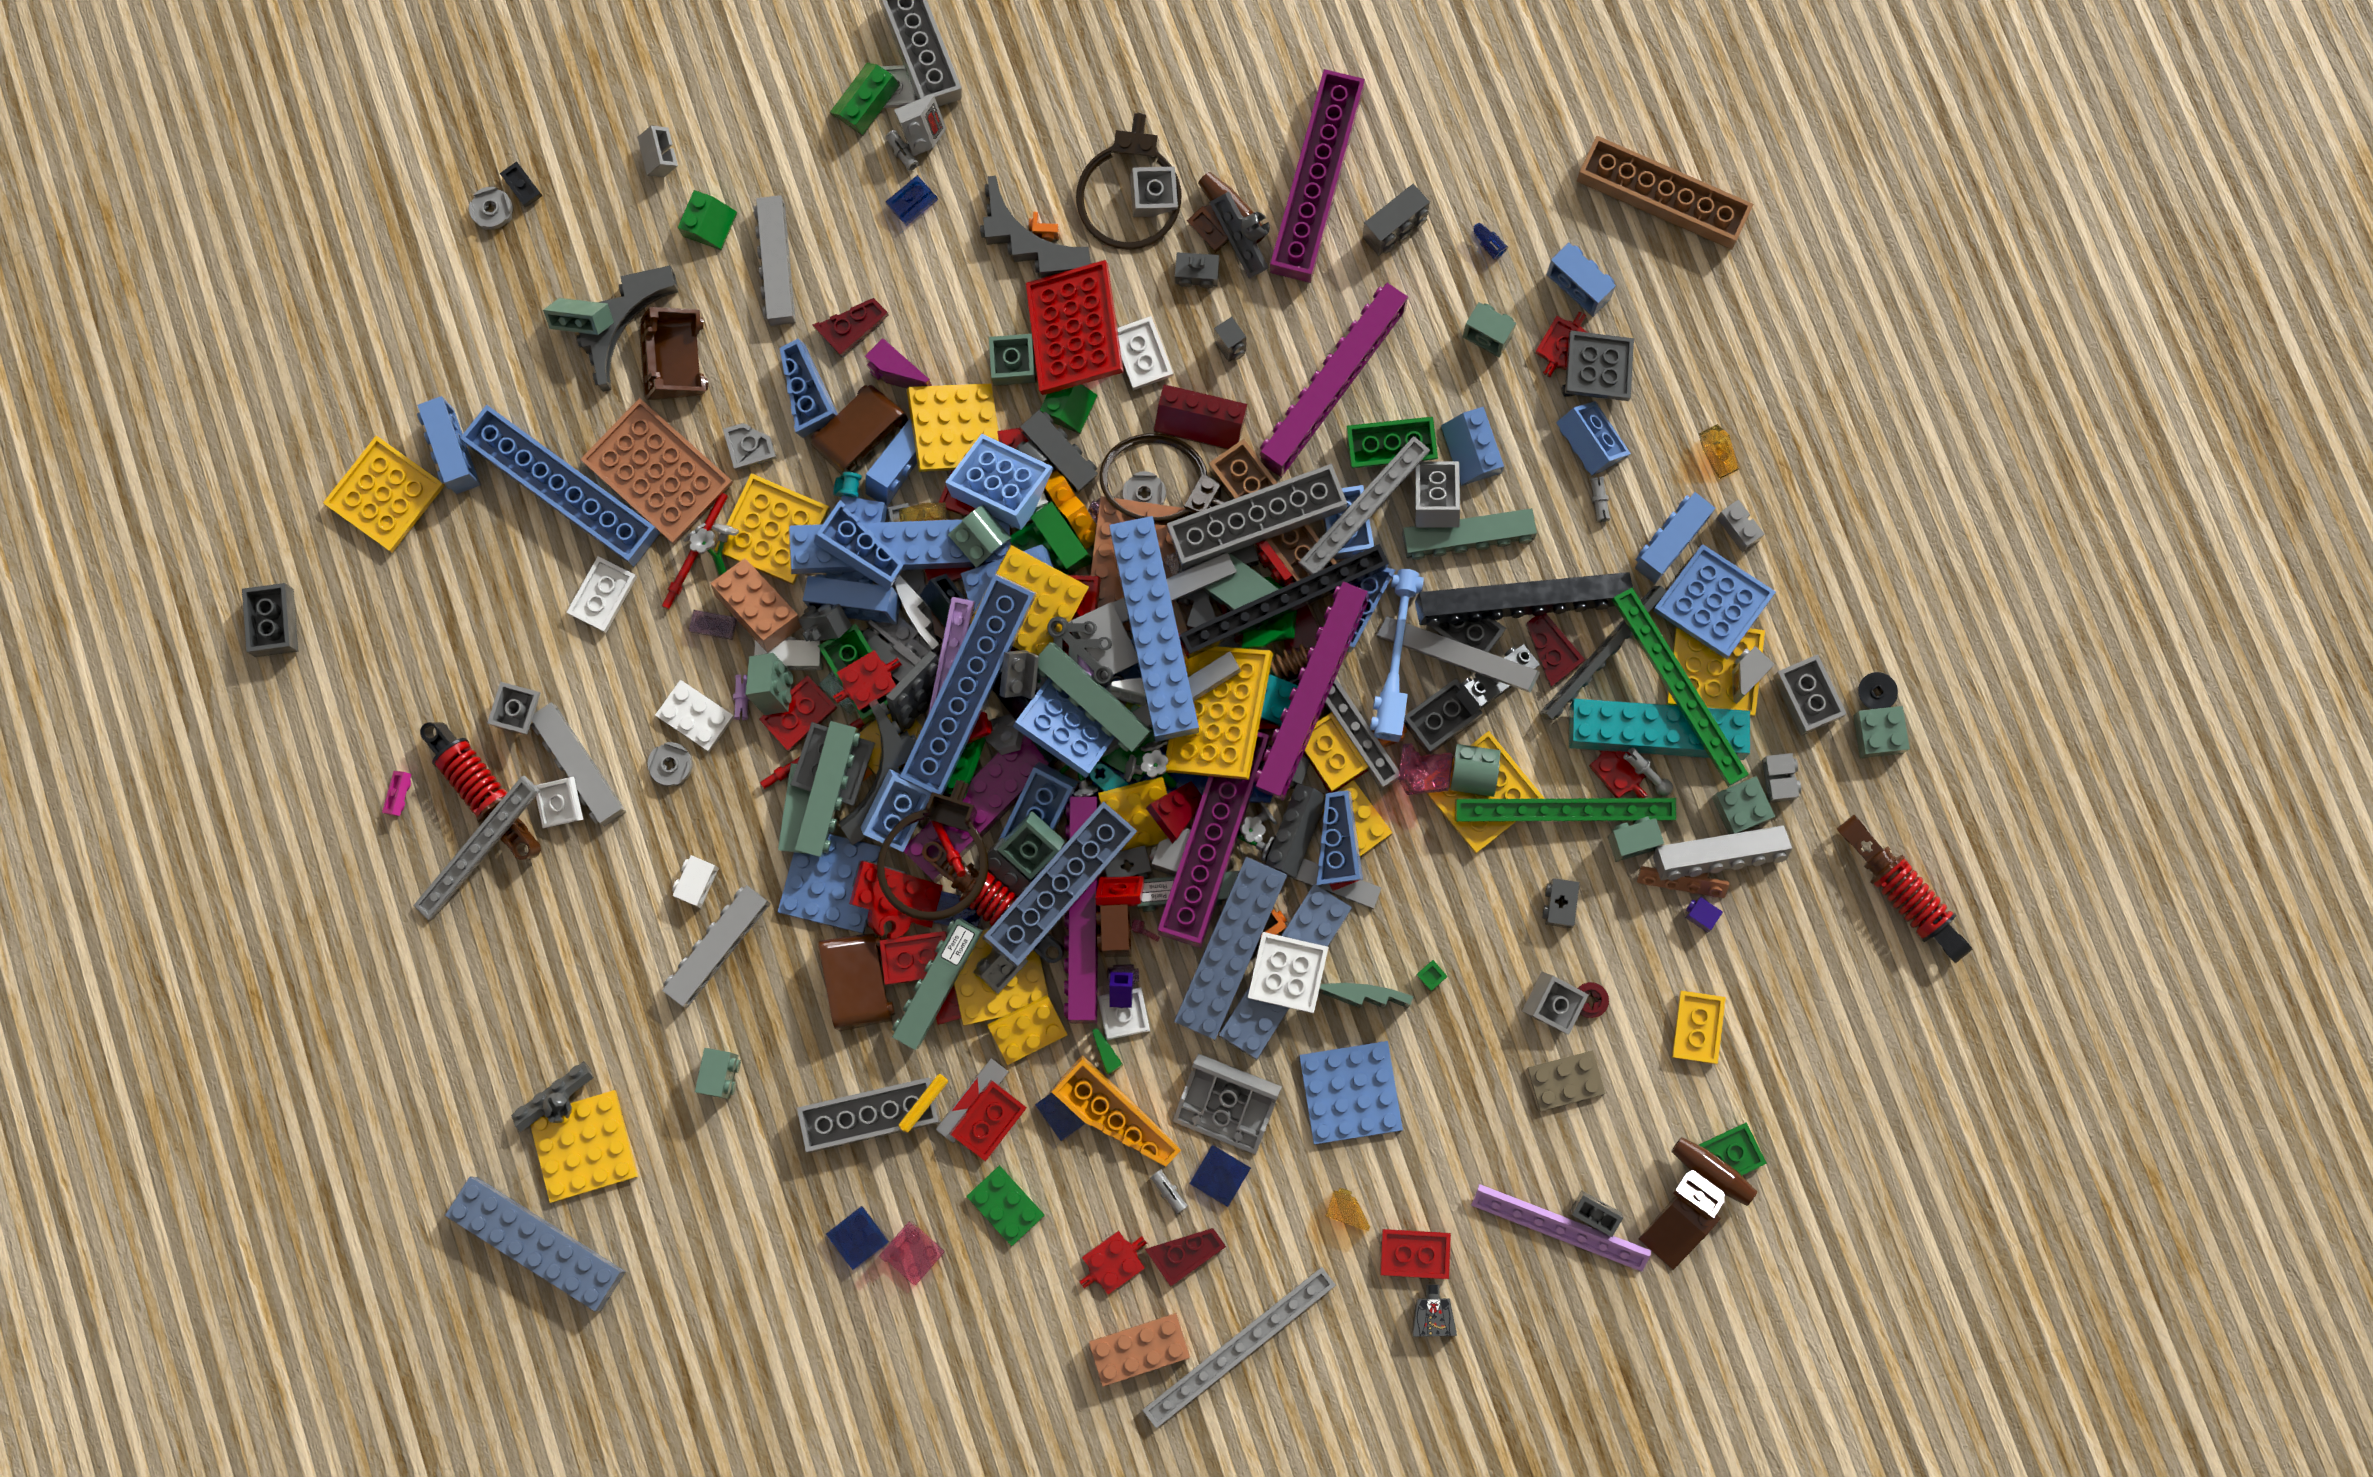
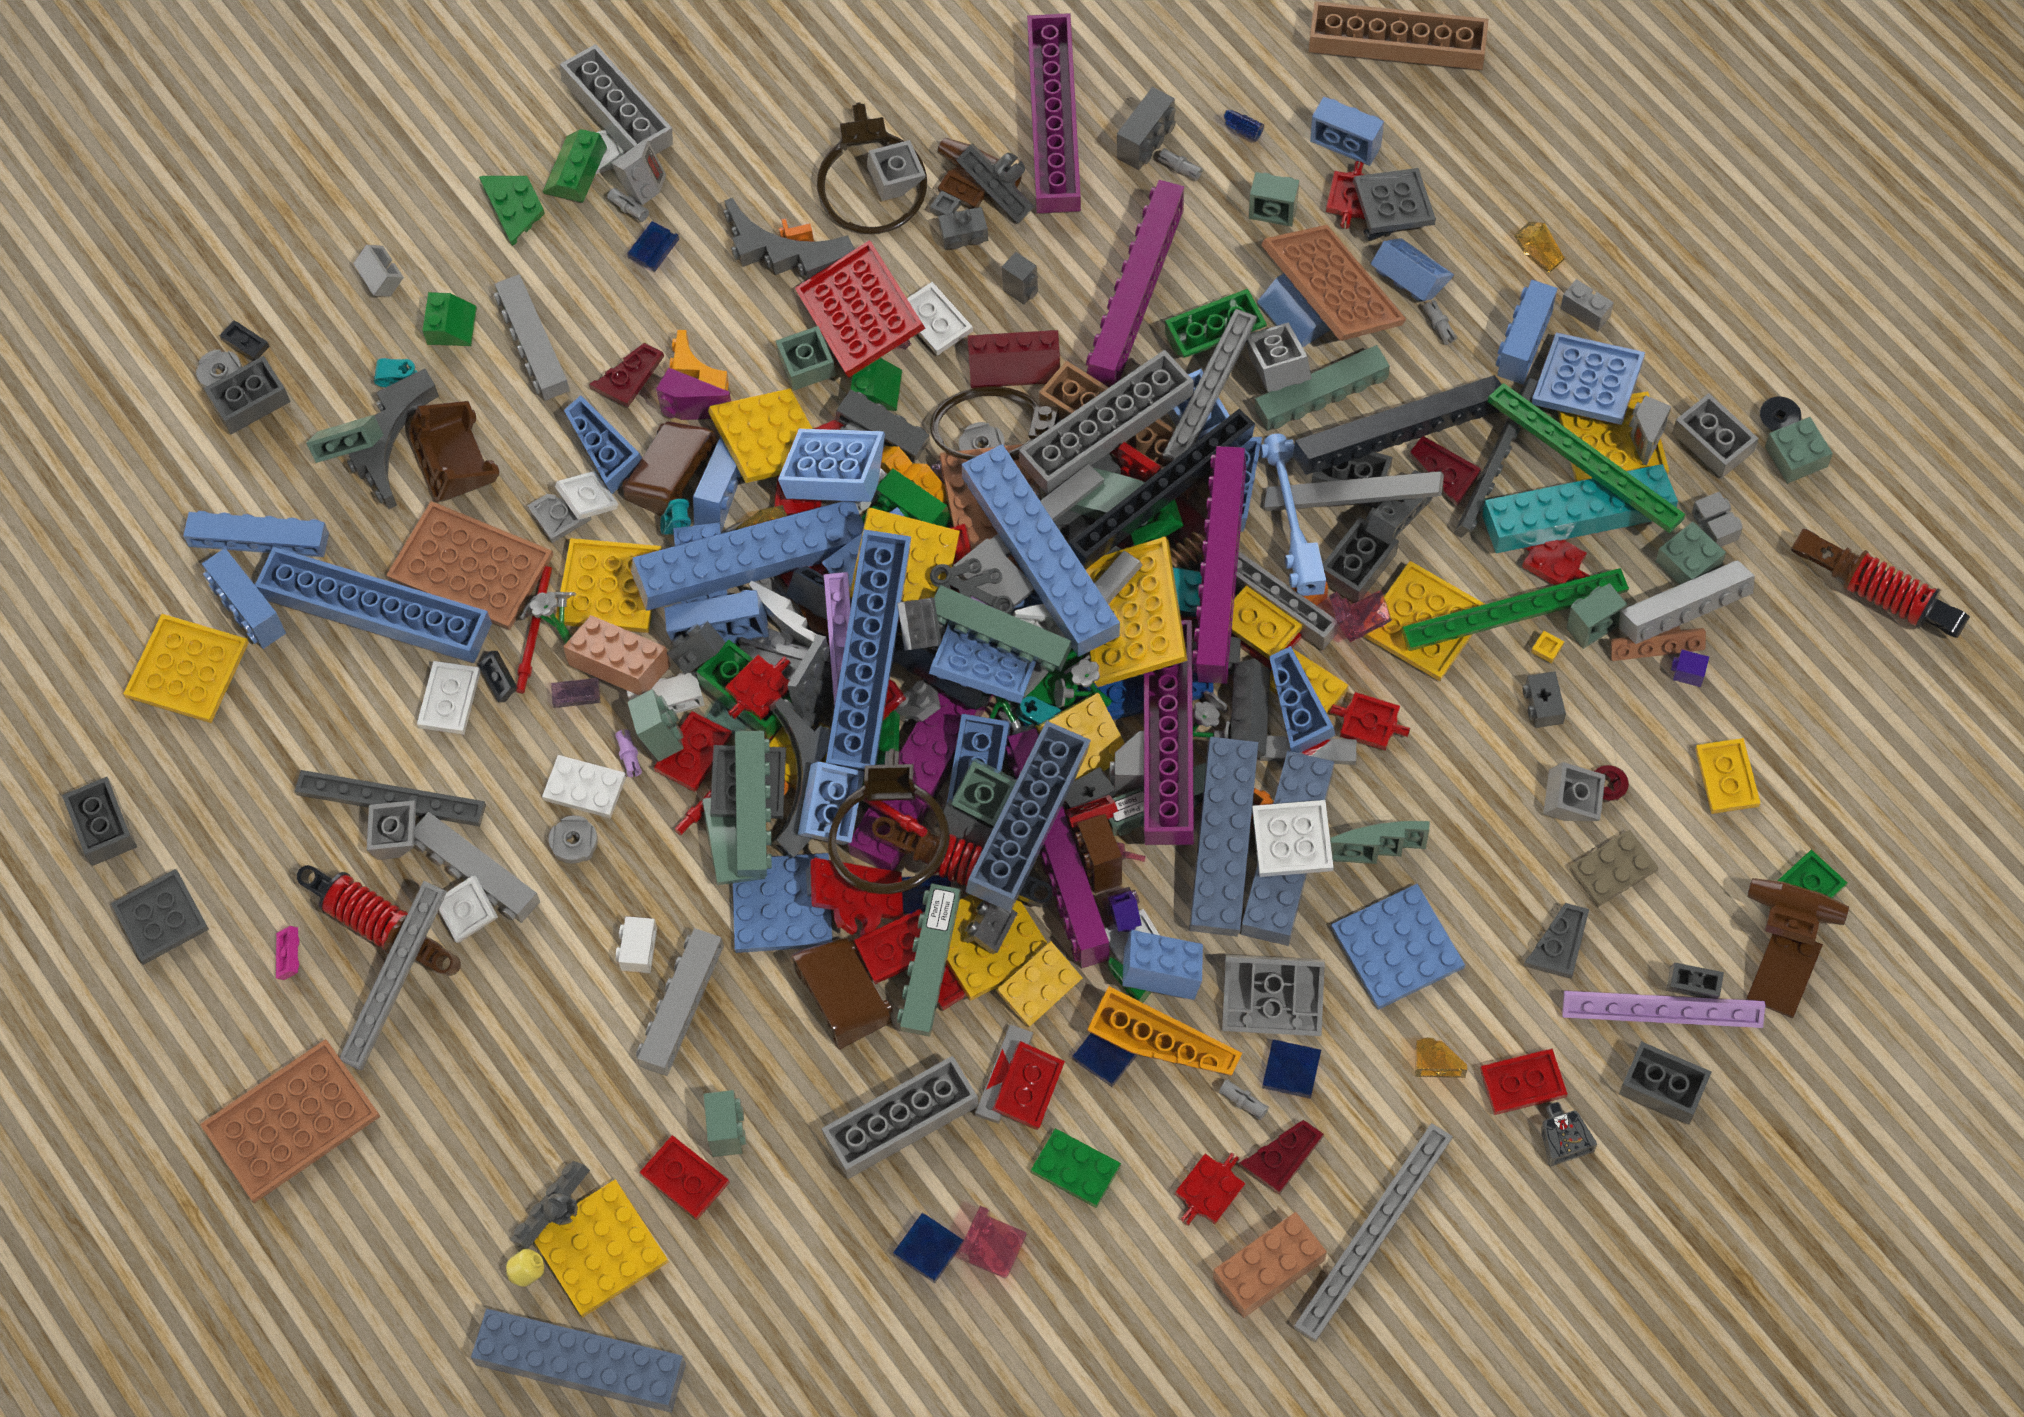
camera: 20 degrees left, 15 degrees down
(299, 724) = (159, 916): none -> dark grey plate
(357, 948) = (290, 1120): none -> nougat plate
(479, 382) = (255, 533): none -> medium blue brick
(506, 242) = (247, 395): none -> dark grey brick
(514, 1147) = (525, 1267): none -> light yellow head
(524, 674) = (369, 793): none -> dark grey plate
(643, 258) = (392, 370): none -> teal piece
(649, 587) = (498, 676): none -> black plate
(672, 1107) = (684, 1177): none -> red plate
(777, 435) = (586, 495): none -> white tile
(800, 116) = (513, 203): none -> green wing
(857, 547) = (712, 555): medium blue wedge -> none
(903, 333) = (688, 364): none -> light orange arch
(923, 1103) = (955, 1080): yellow axle -> none
(979, 536) = (830, 518): sand green brick -> none
(1137, 1051) = (1162, 964): none -> medium blue brick
(1175, 810) = (1120, 717): dark red wing -> none
(1188, 240) = (945, 204): none -> dark grey plate
(1399, 873) = (1370, 721): none -> red plate
(1417, 263) = (1180, 164): none -> light grey pin
(1431, 975) = (1439, 807): green plate -> none
(1475, 770) = (1411, 598): sand green brick -> none
(1494, 1136) = (1561, 943): none -> dark grey wing
(1514, 433) = (1333, 282): none -> nougat plate
(1536, 1298) = (1665, 1083): none -> dark grey brick
(1583, 852) = (1547, 647): none -> yellow plate
(1662, 786) = (1575, 546): light grey pin -> none

